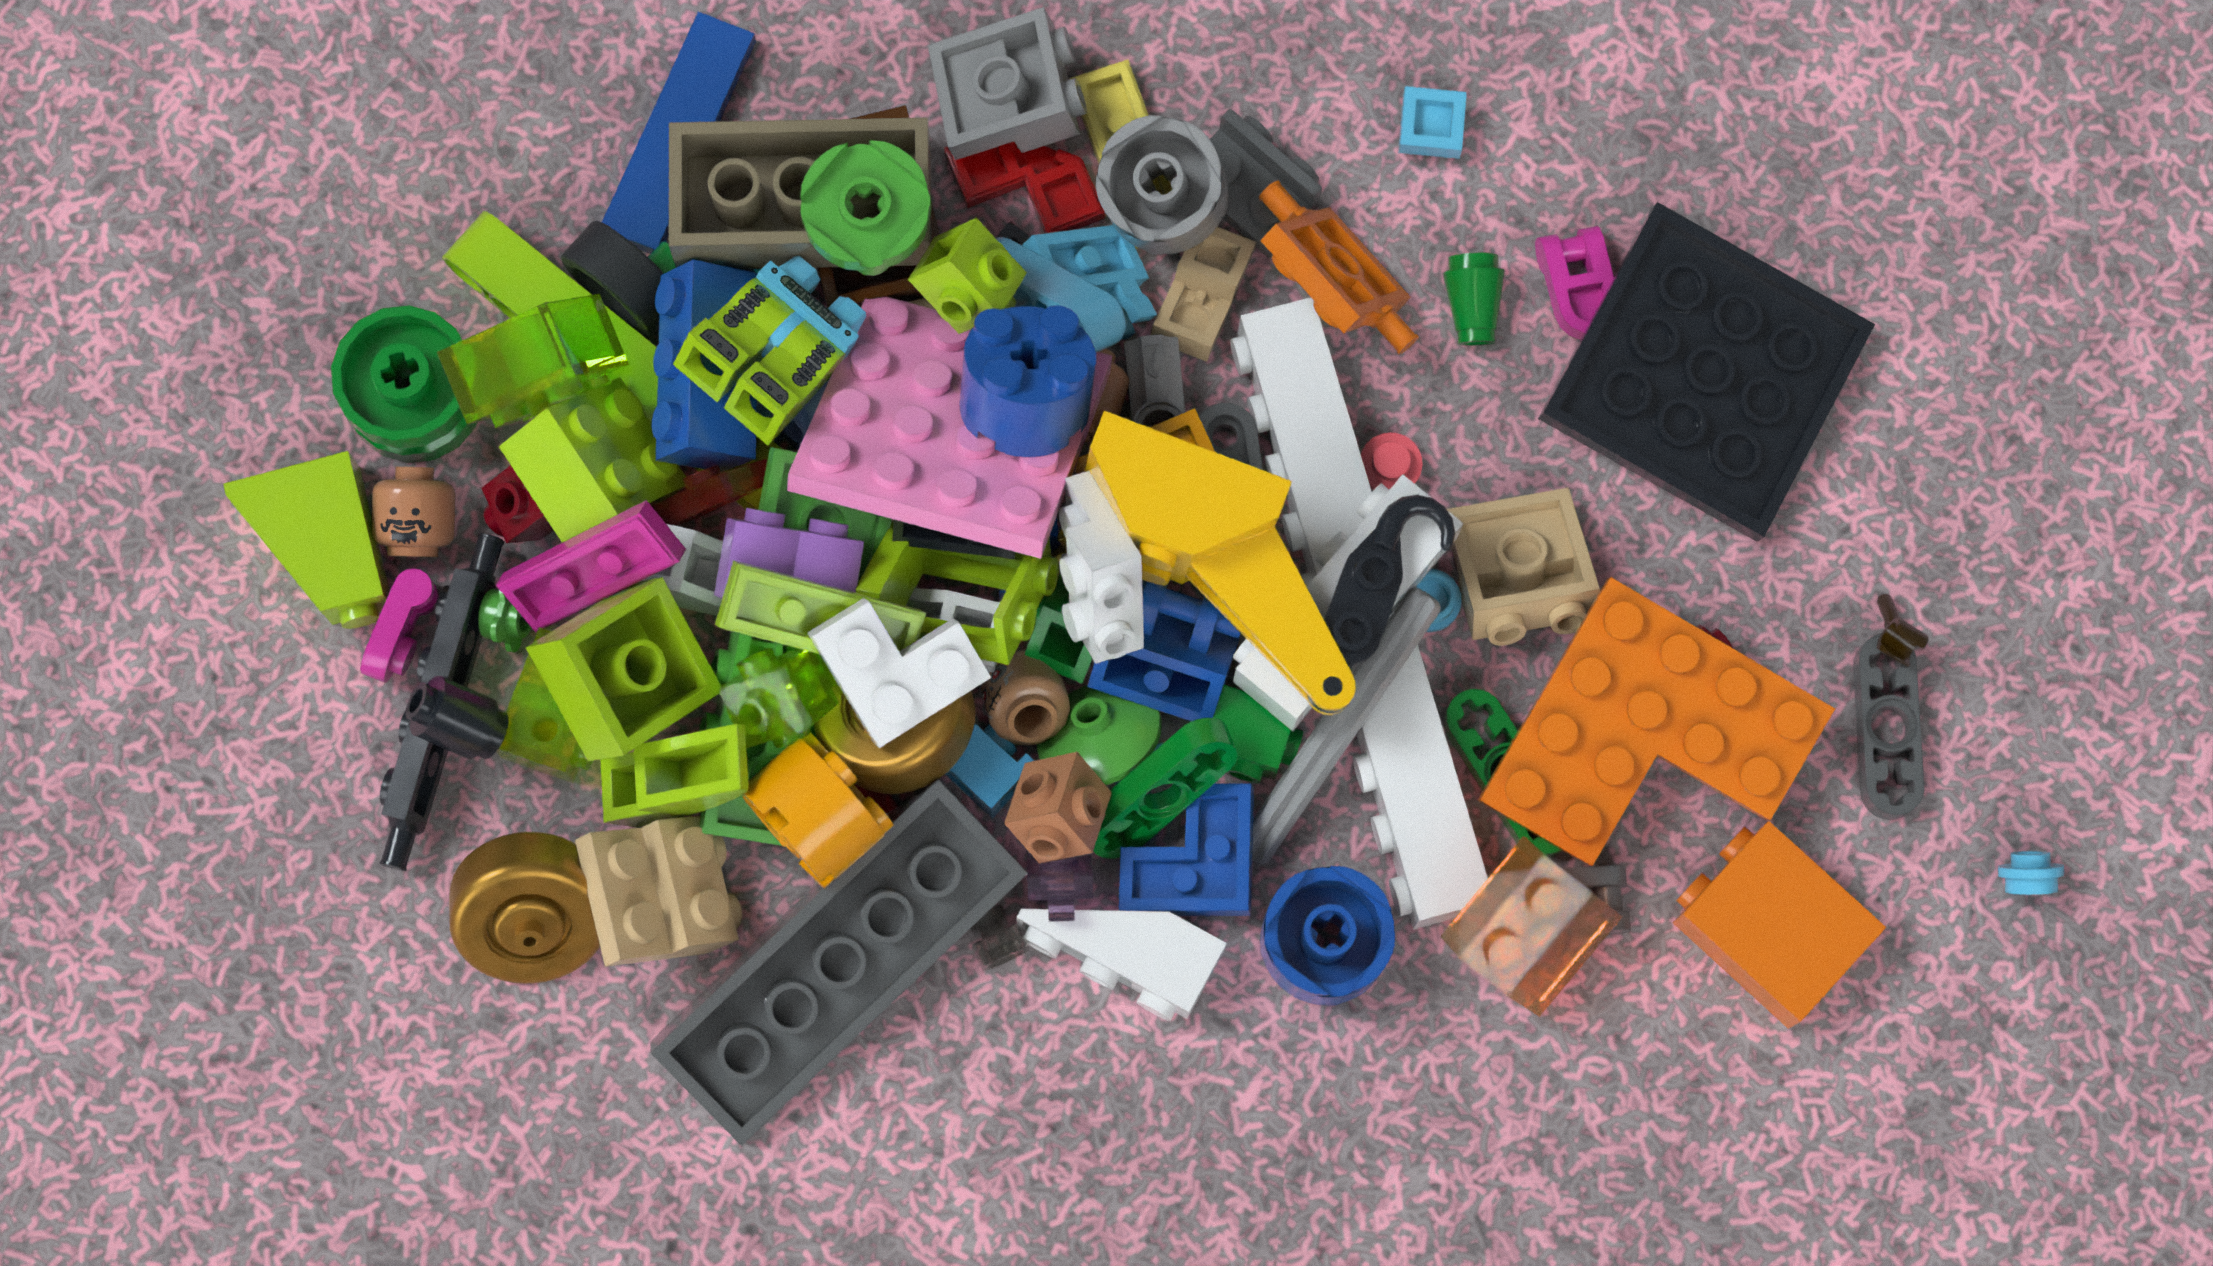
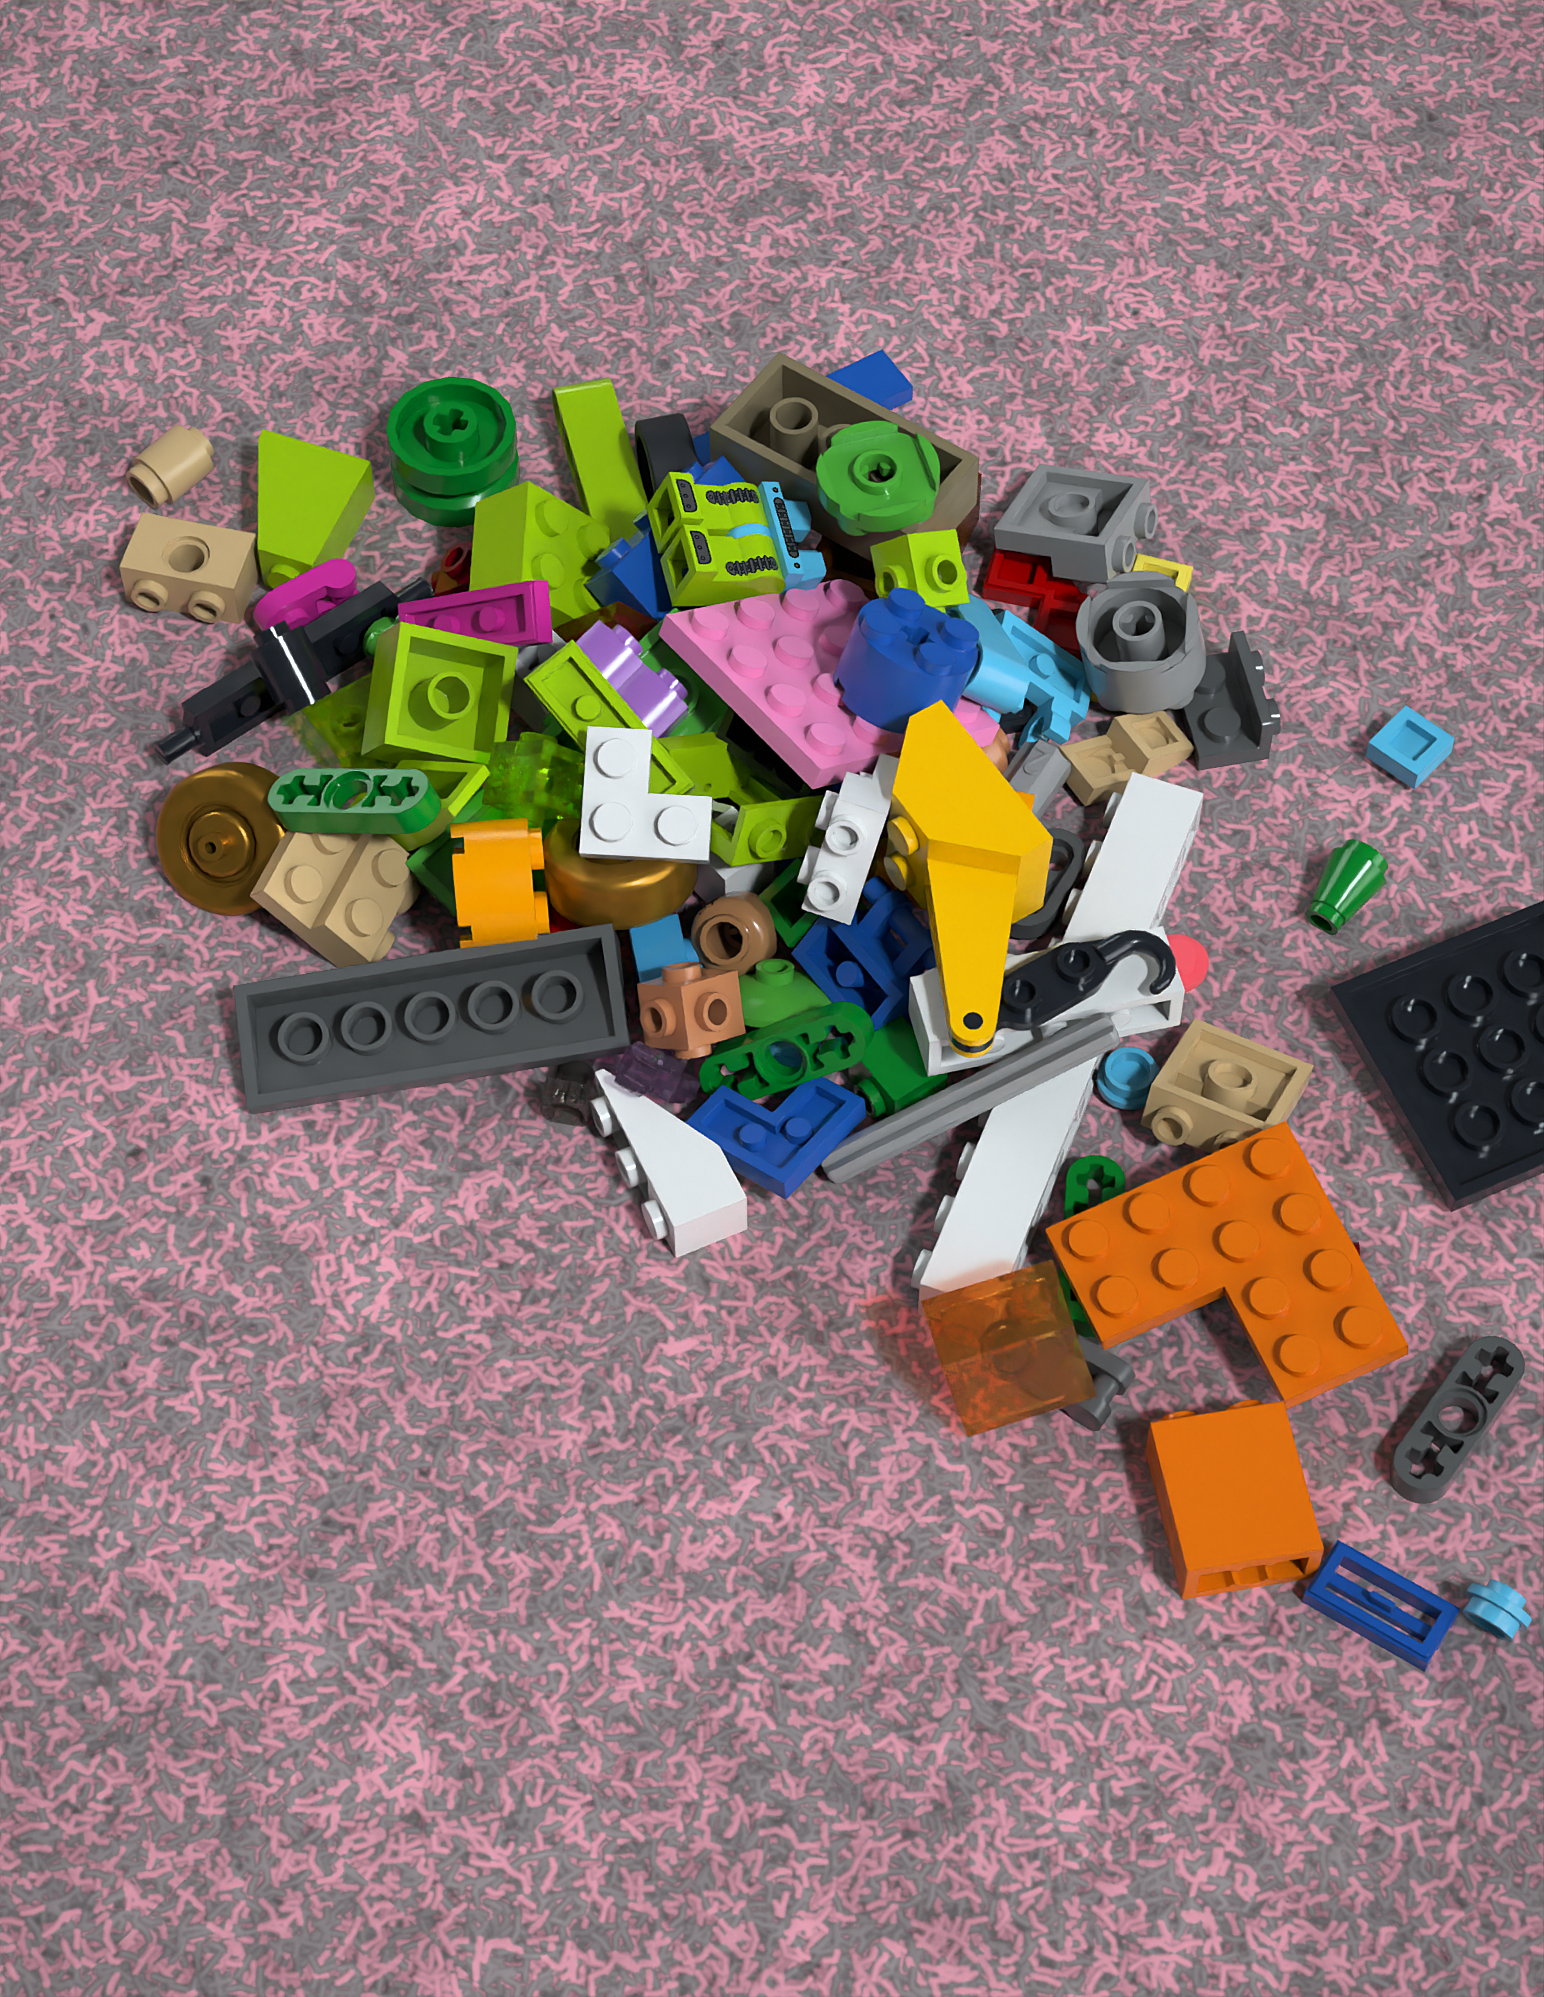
camera: 40 degrees right, 20 degrees down
(157, 568) = (171, 466): none -> tan brick
(228, 658) = (190, 568): none -> tan brick
(413, 513) = (384, 537): nougat head -> none
(533, 360) = (559, 450): clear neon green brick -> none
(671, 834) = (394, 802): none -> green beam
(1321, 898) = (835, 1252): blue brick -> none
(1335, 269) = (1238, 787): orange plate -> none
(1575, 296) = (1432, 928): dark pink plate -> none
(1899, 636) = (1517, 1346): dark brown hand -> none
(1995, 924) = (1370, 1627): none -> blue tile

